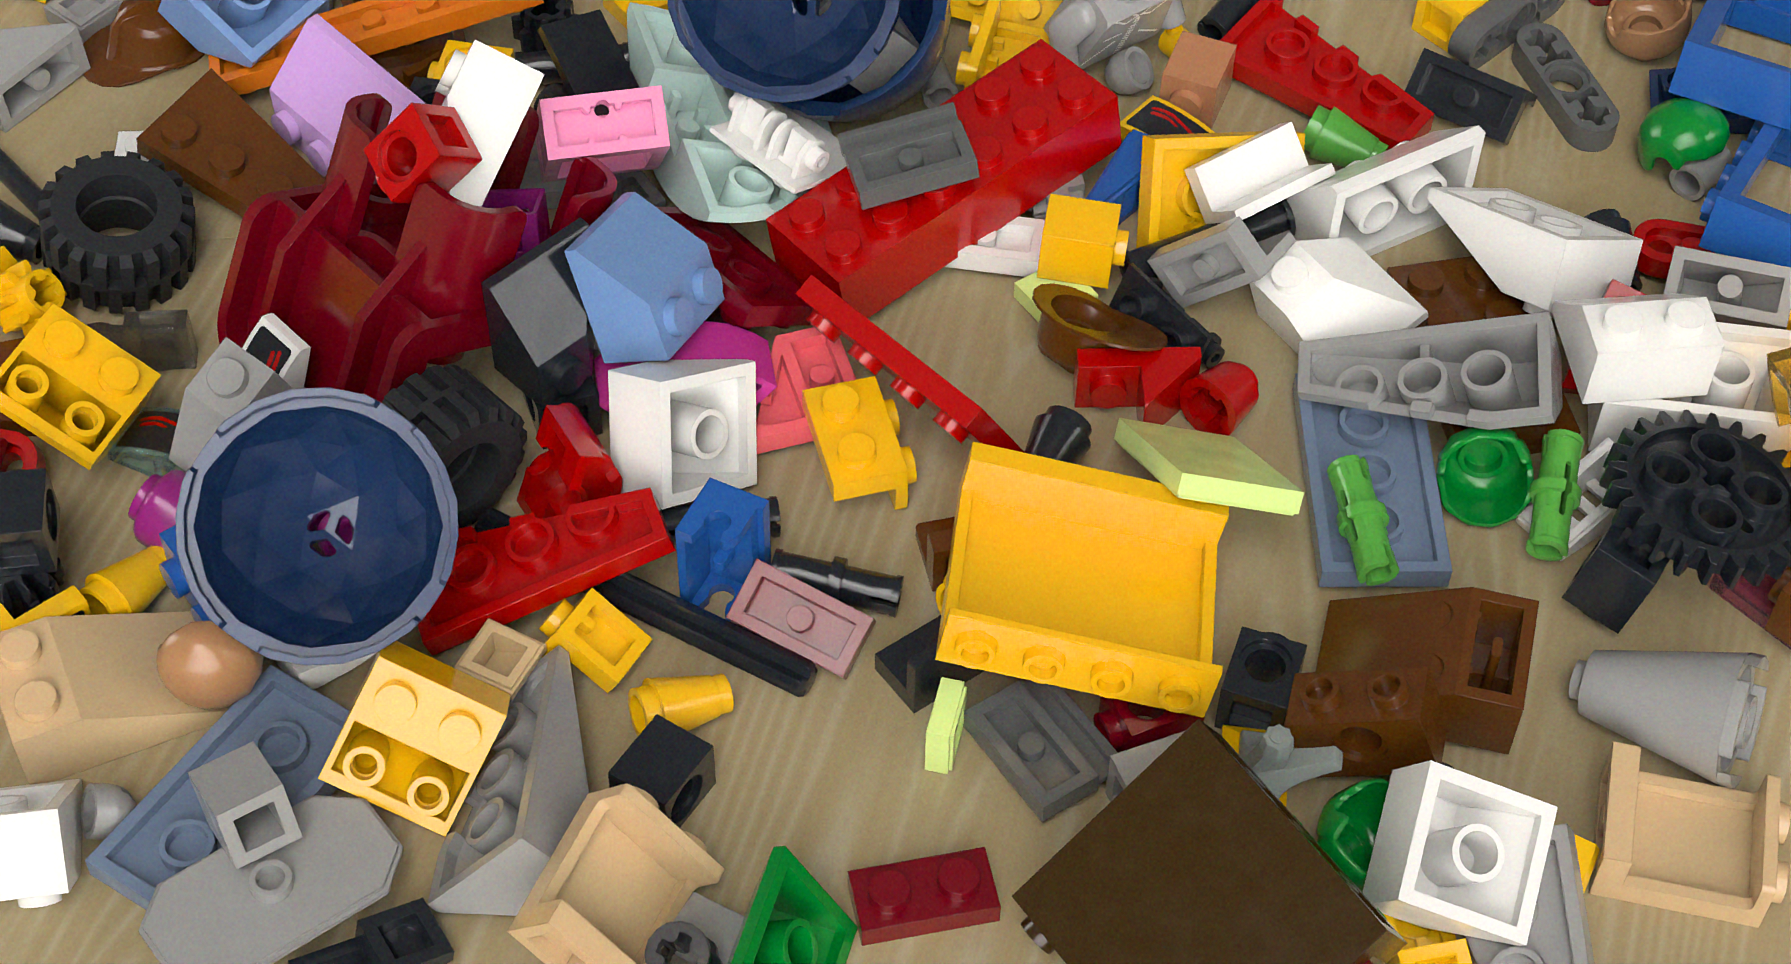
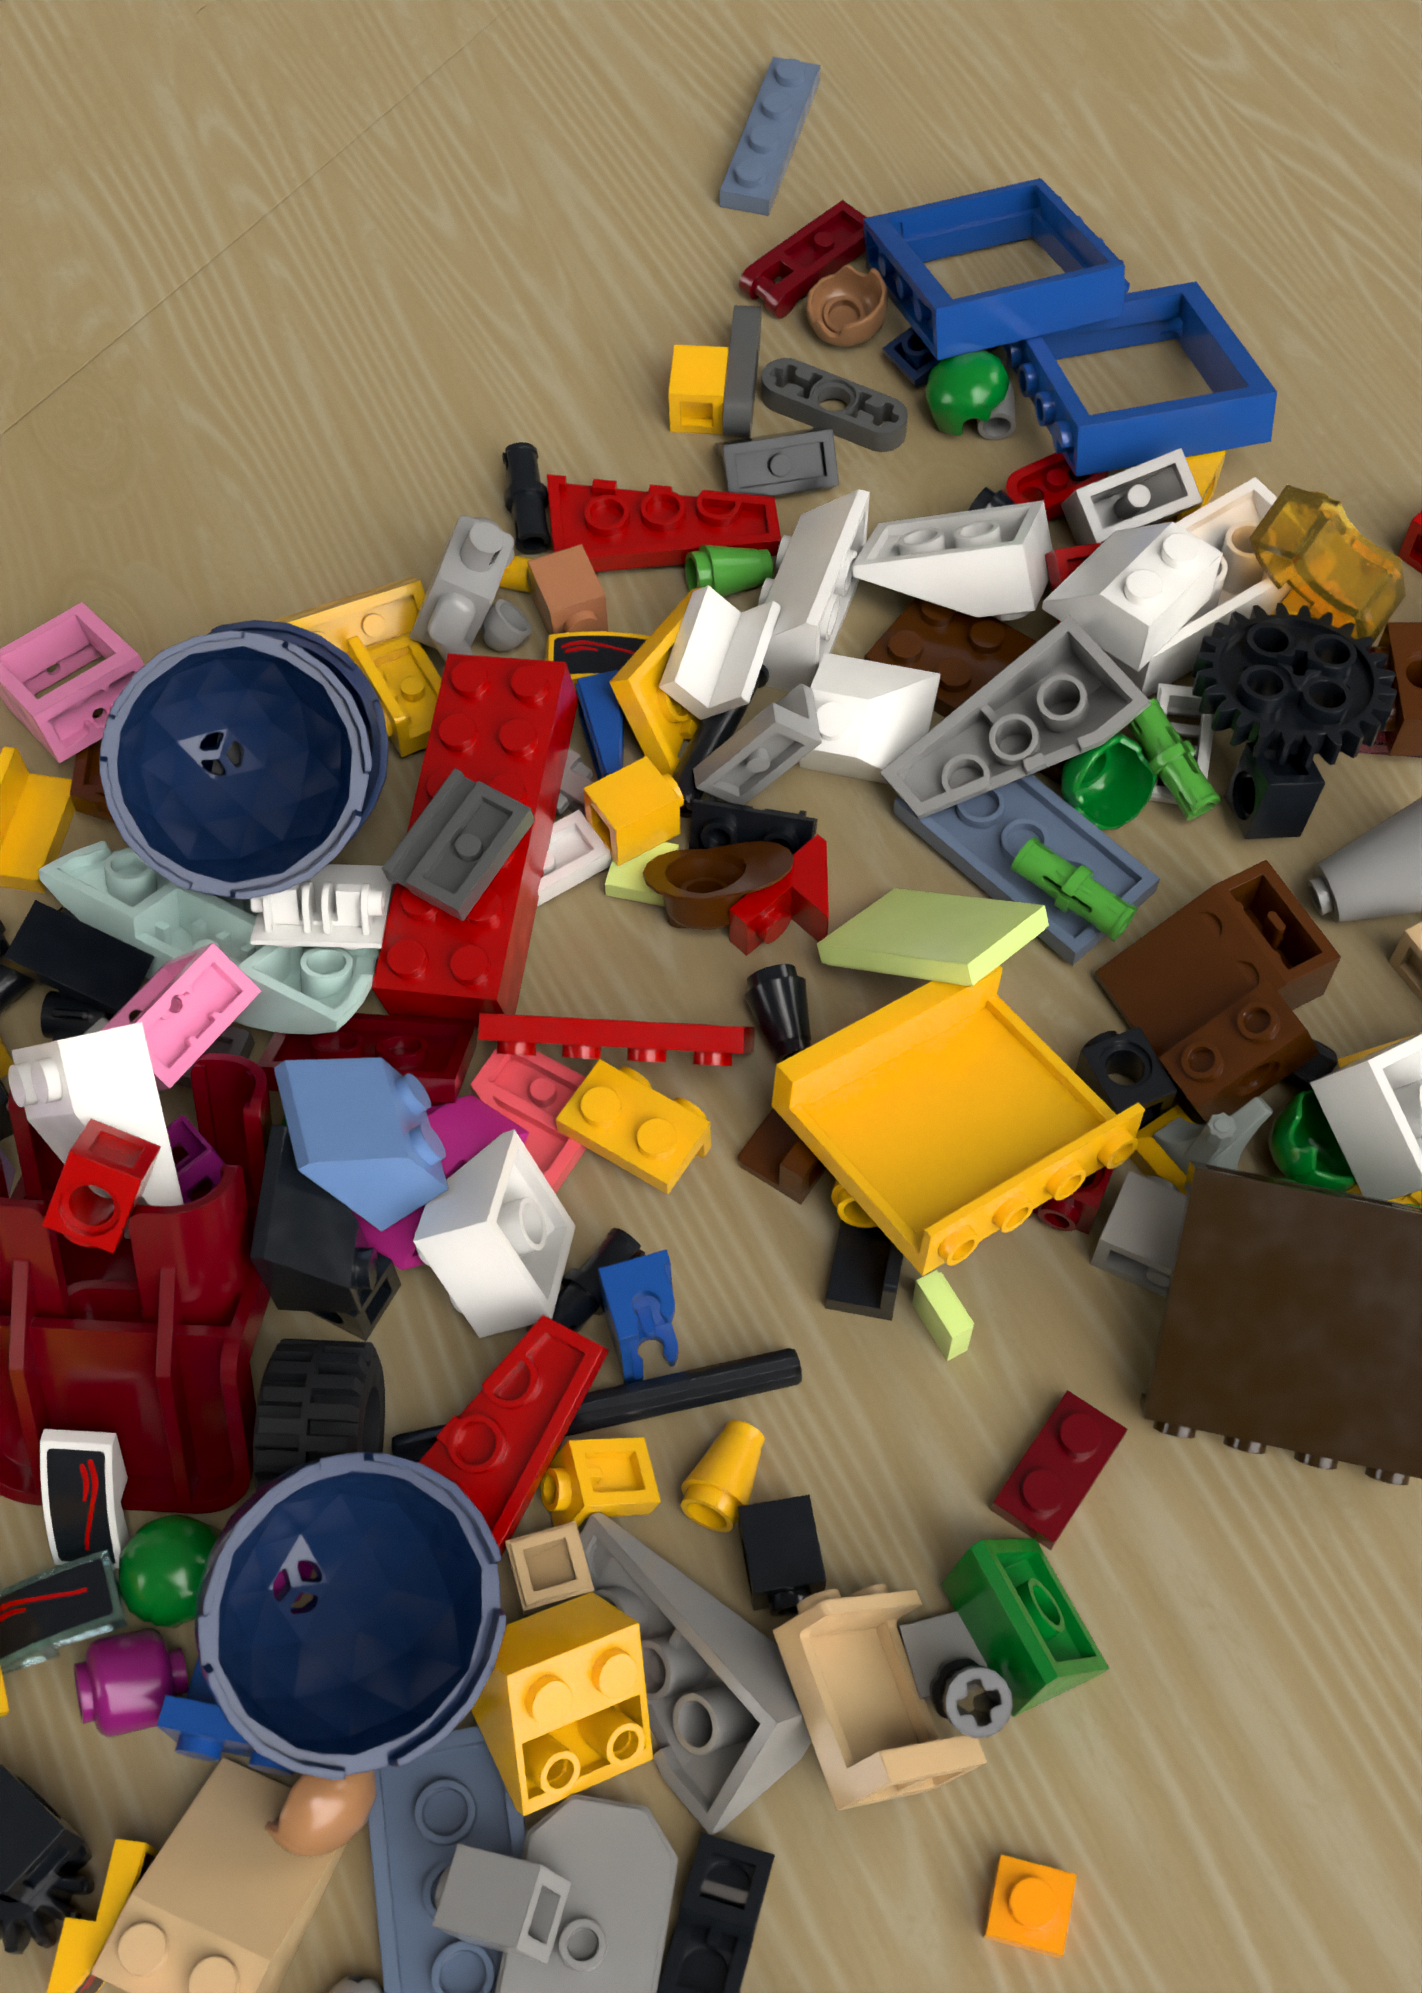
camera: 40 degrees left, 10 degrees up
(127, 584) = (148, 1789): yellow cone -> none
(219, 390) = (102, 1560): light grey slope -> none
(571, 469) = (434, 1355): red cylinder -> none
(801, 618) = (746, 1319): plate -> none
(845, 583) = (735, 1262): black pin -> none
(1041, 744) = (1030, 1272): dark grey plate -> none
(1219, 397) = (859, 864): red hat -> none

